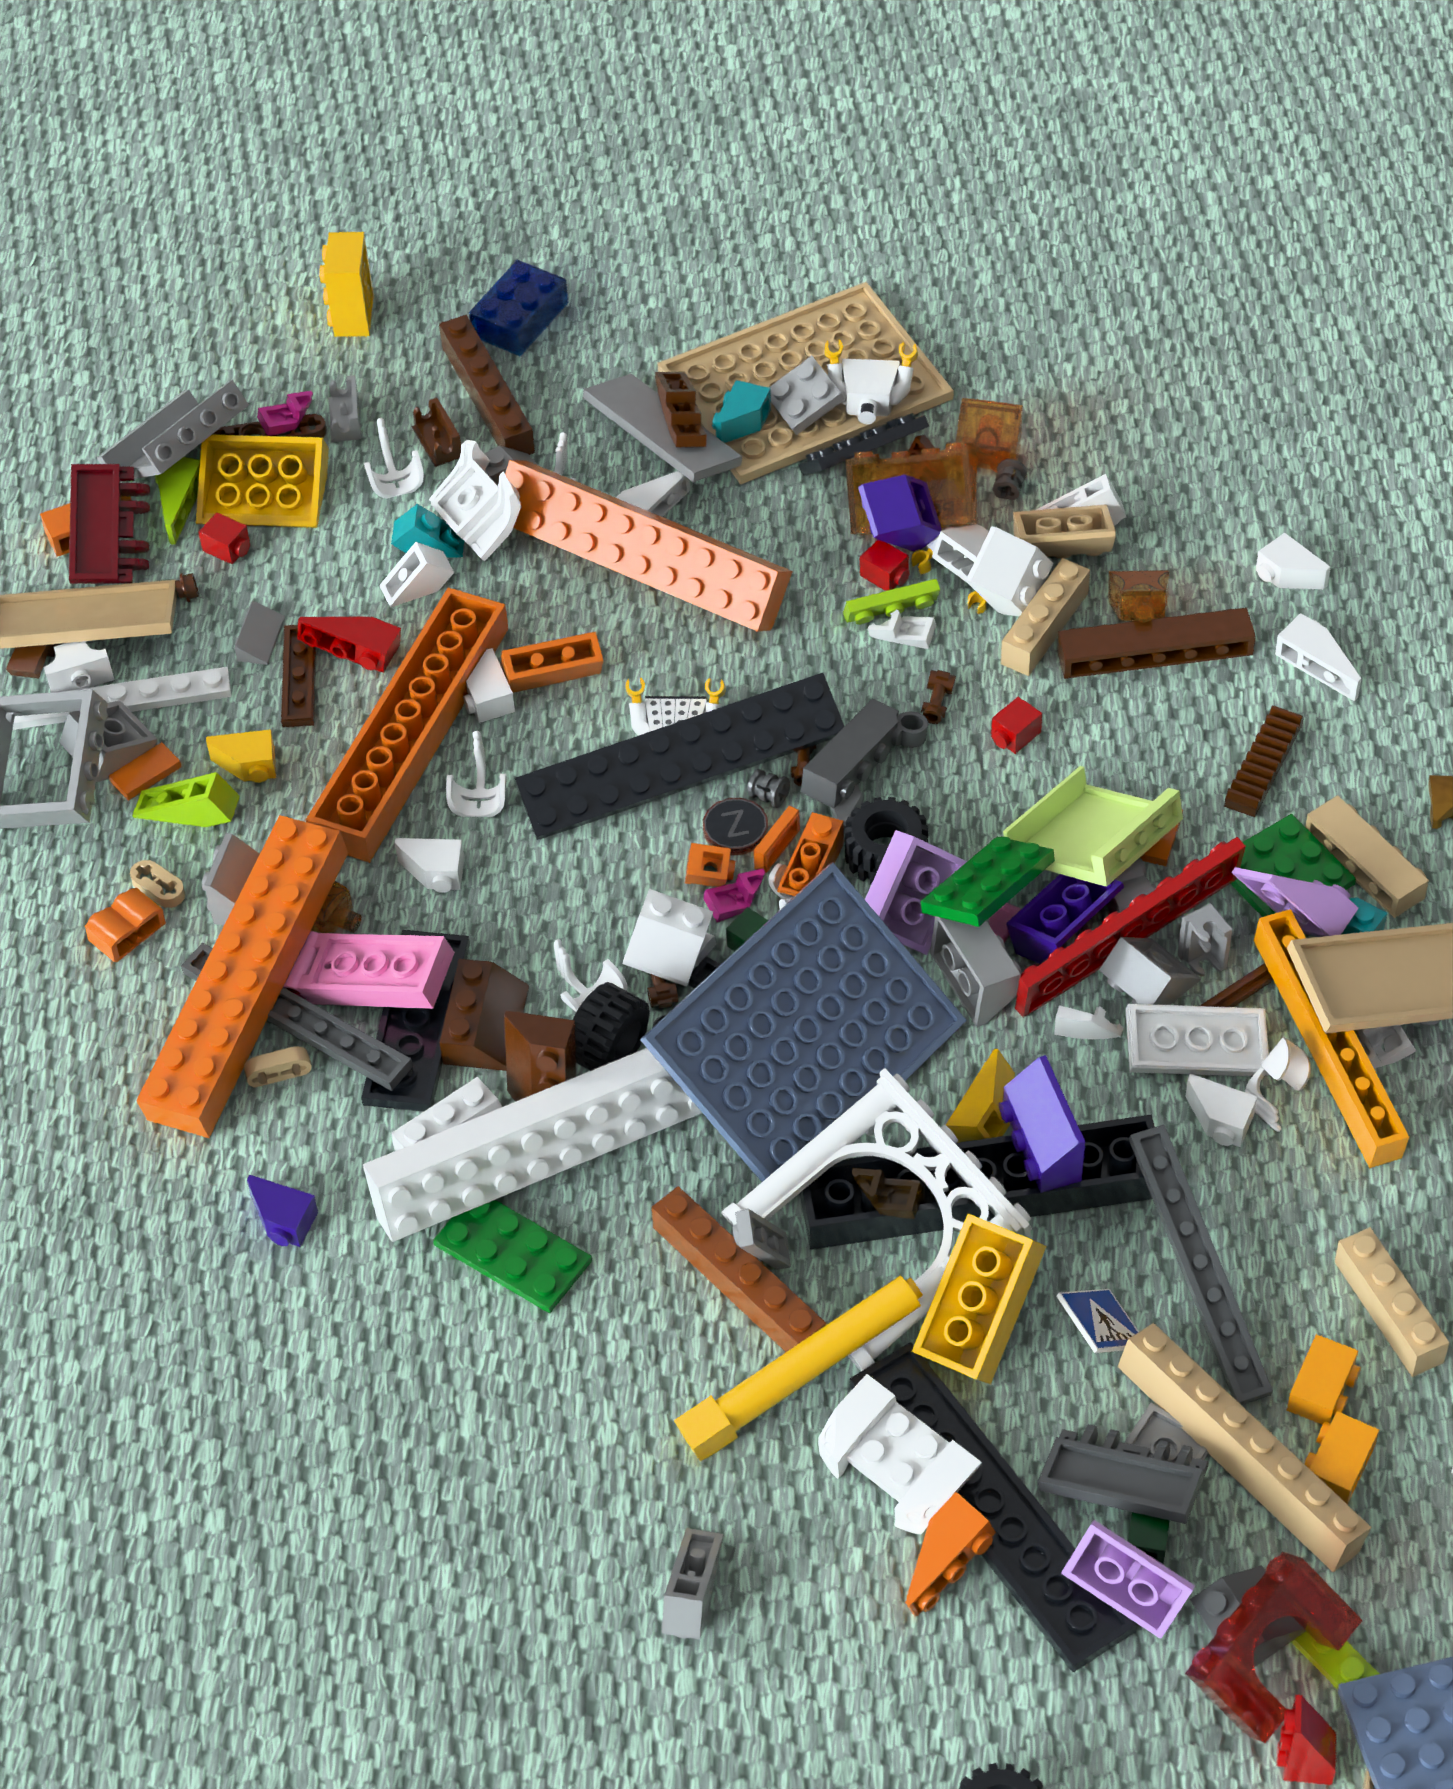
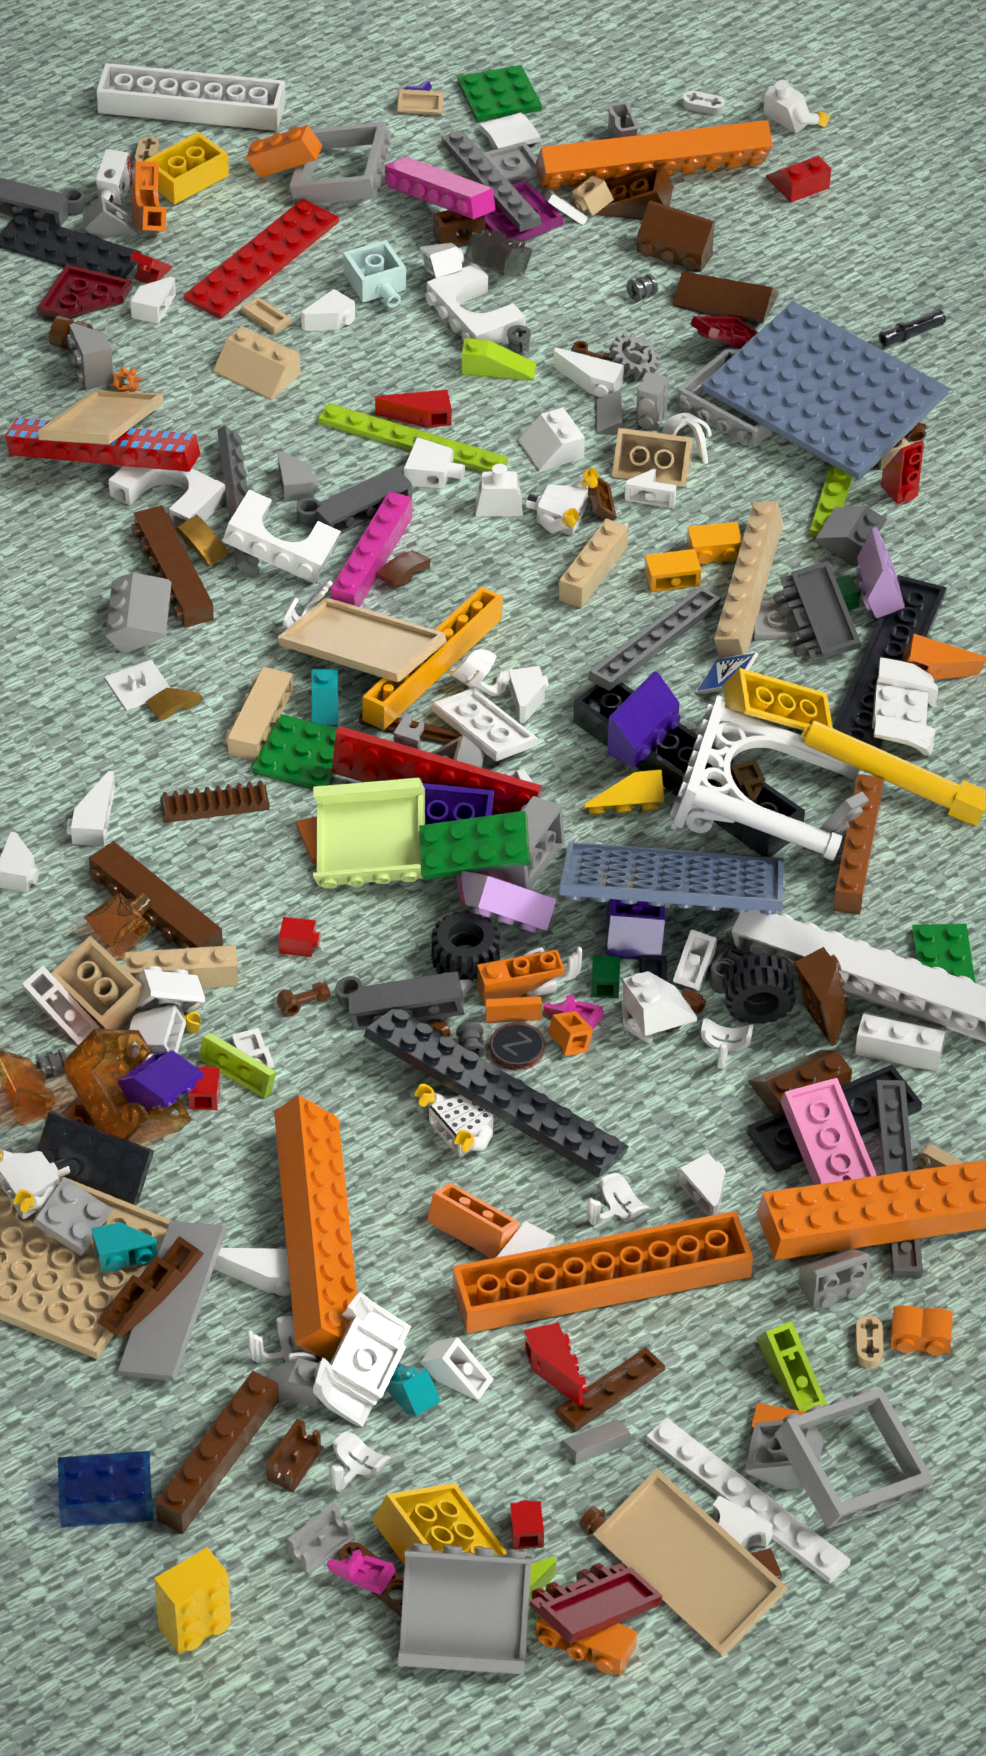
camera: 130 degrees left, 5 degrees down
(245, 754) = (715, 1358): yellow slope -> none
(1226, 1664) = (866, 500): clear red arch -> none
(1317, 907) = (343, 701): lavender slope -> none

